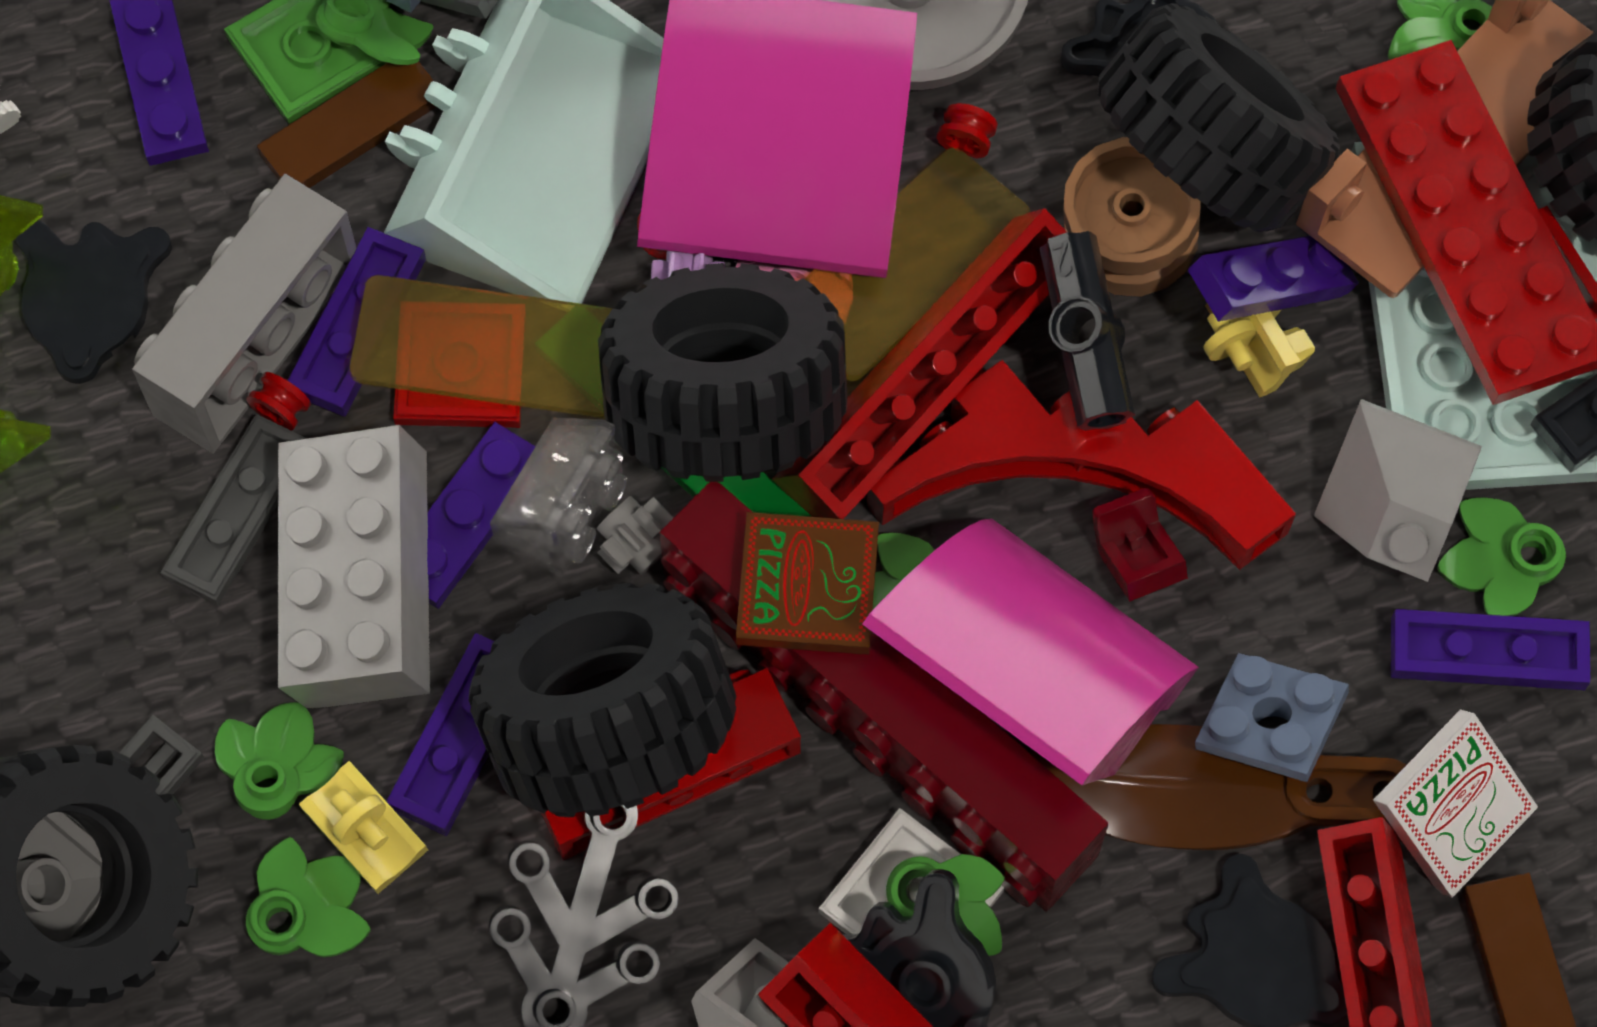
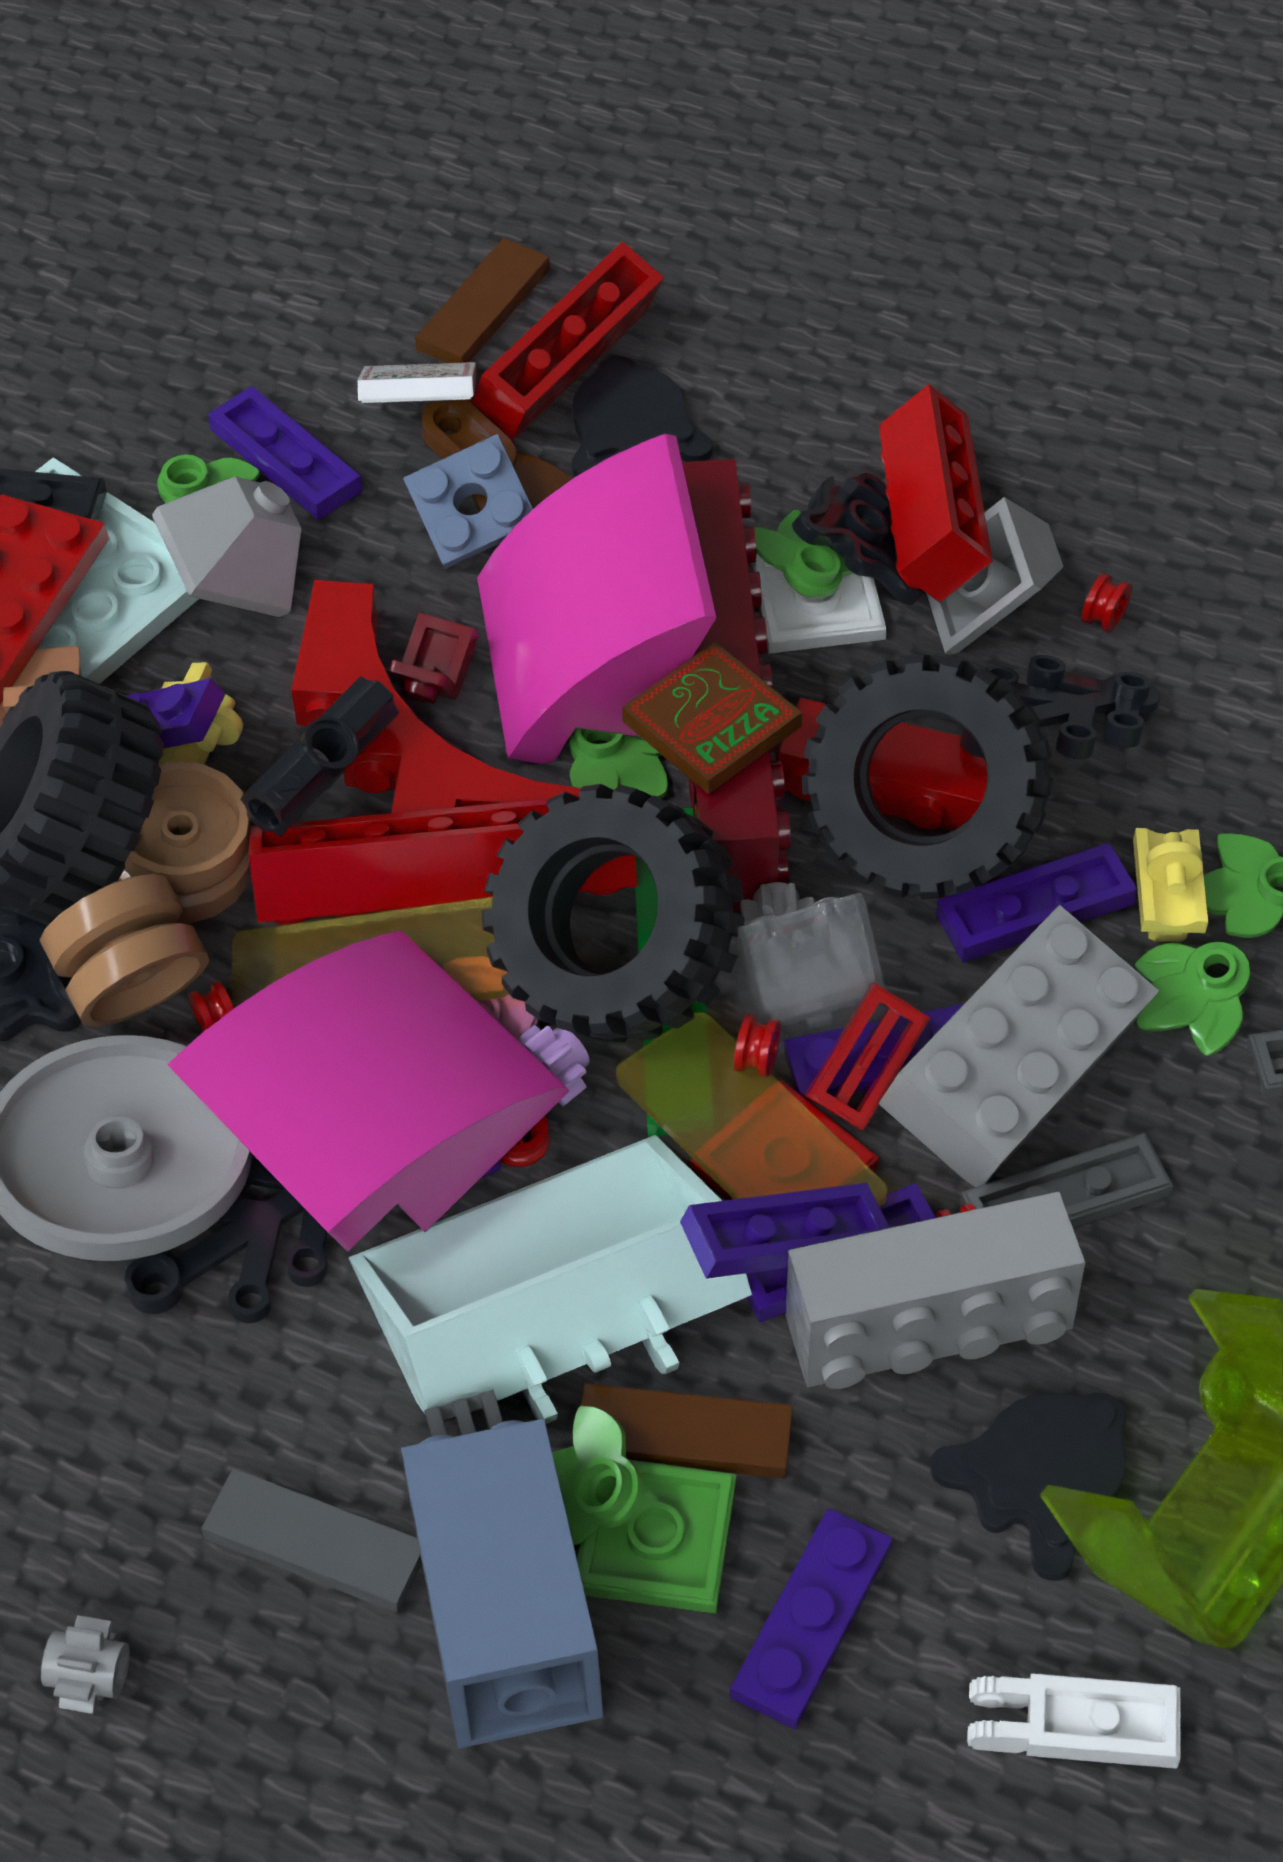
camera: 135 degrees left, 15 degrees down
(371, 245) = (760, 1230): none -> dark purple plate
(472, 464) = (838, 1103): none -> red tile
(538, 392) = (757, 1045): none -> red bush
(1050, 82) = (124, 949): none -> medium nougat wheel

